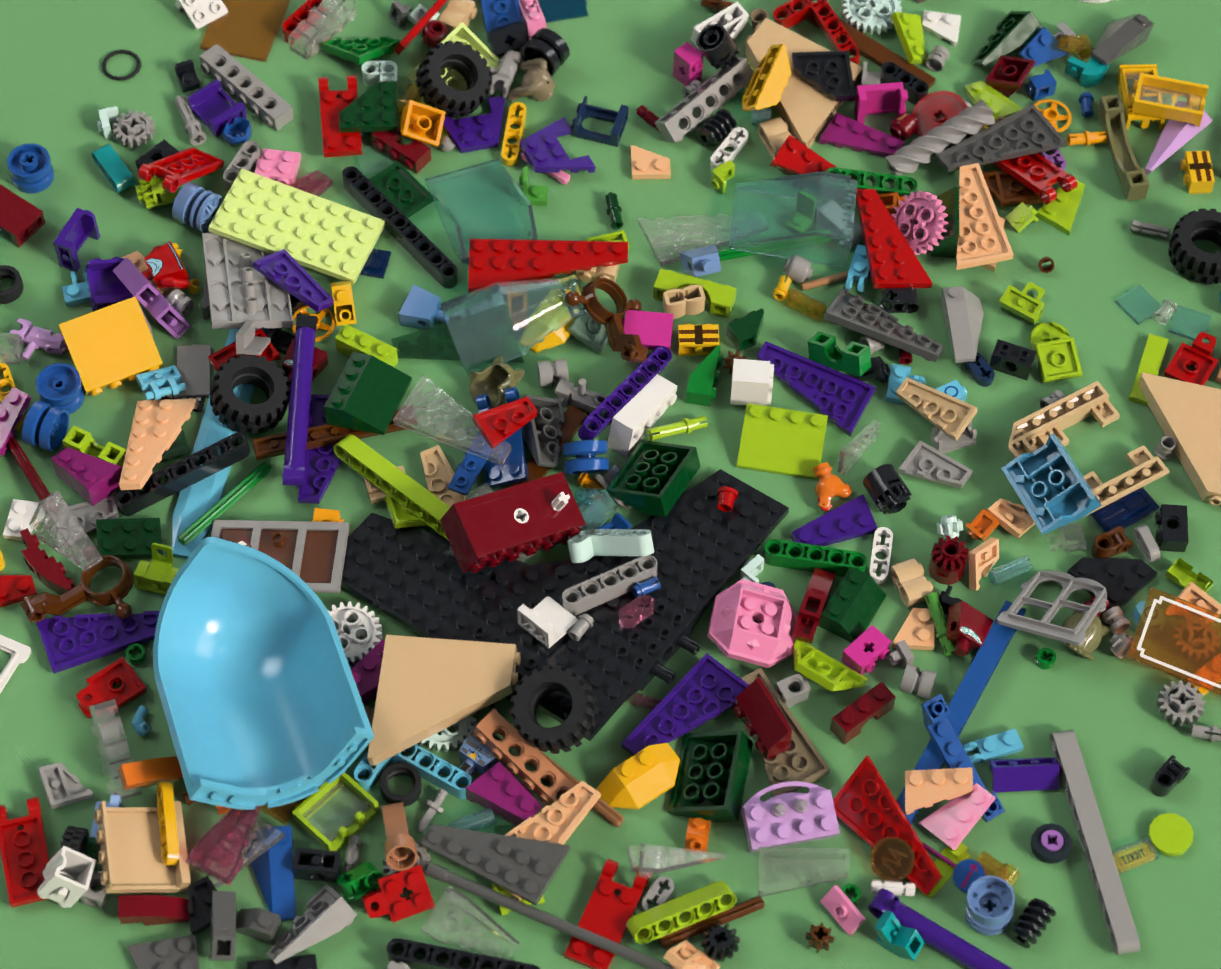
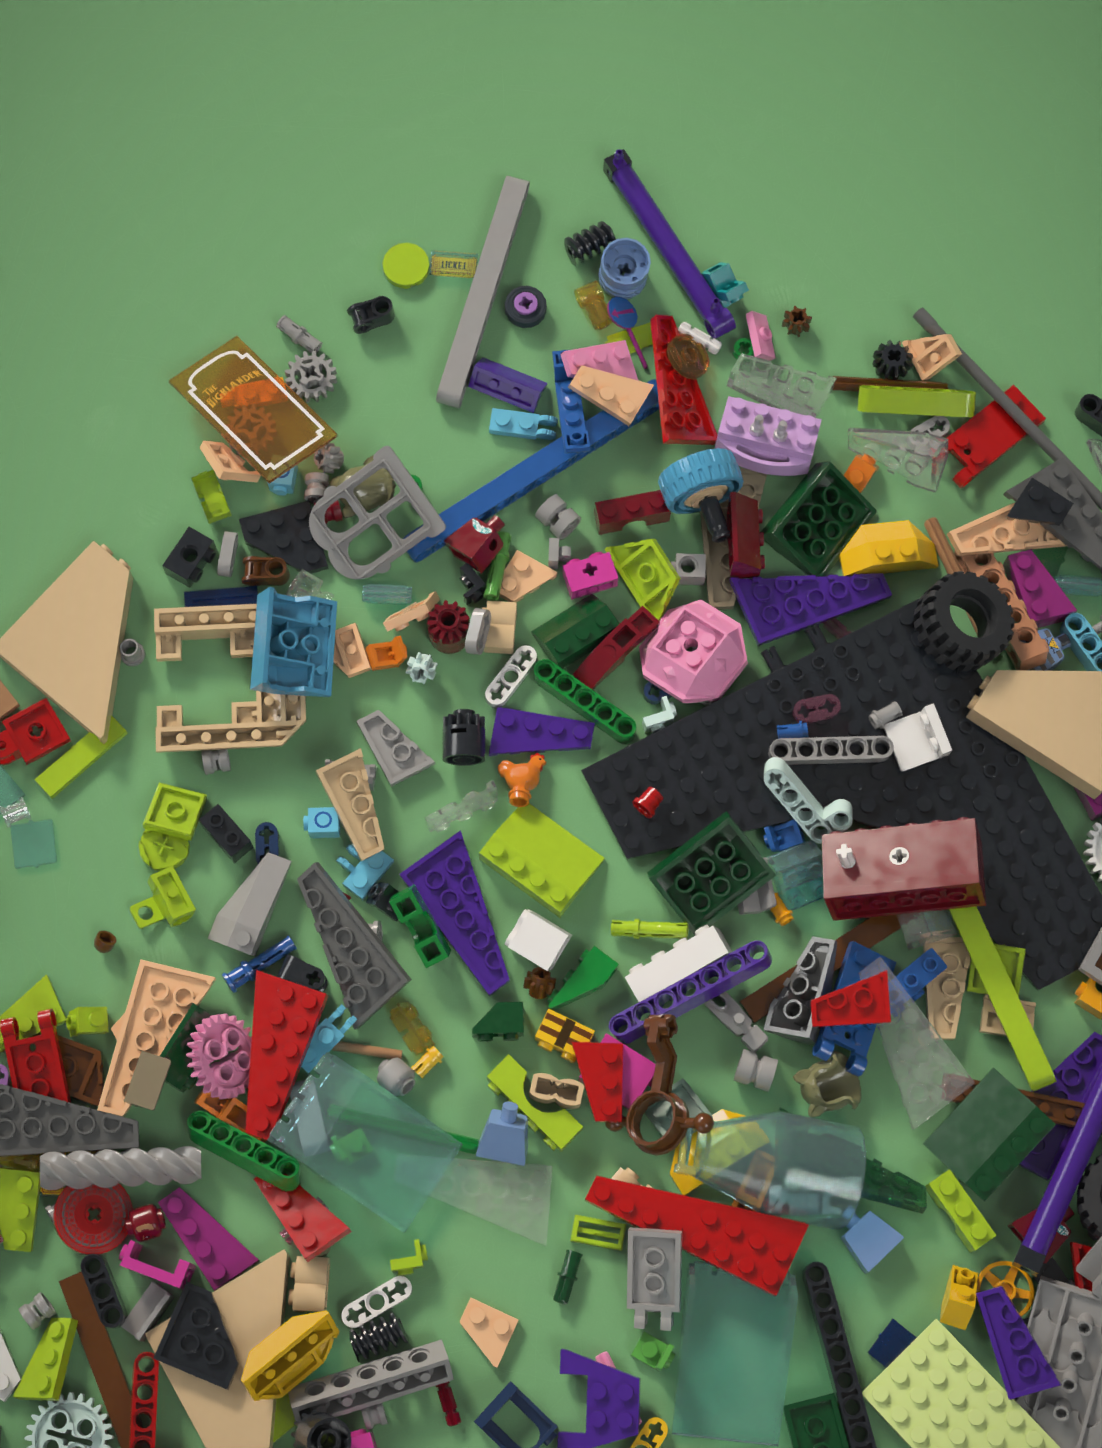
camera: 155 degrees left, 15 degrees up
(535, 843) = (1039, 505): none -> black wing
(558, 222) = (654, 1274): none -> light grey tile
(585, 454) = (779, 925): blue wheel -> none
(657, 317) = (603, 1077): none -> red wing
(818, 732) = (702, 484): none -> dark azure wheel
(924, 559) = (478, 631): none -> light grey beam
(944, 278) = (247, 970): none -> blue pin
(957, 181) = (147, 1081): none -> dark tan panel

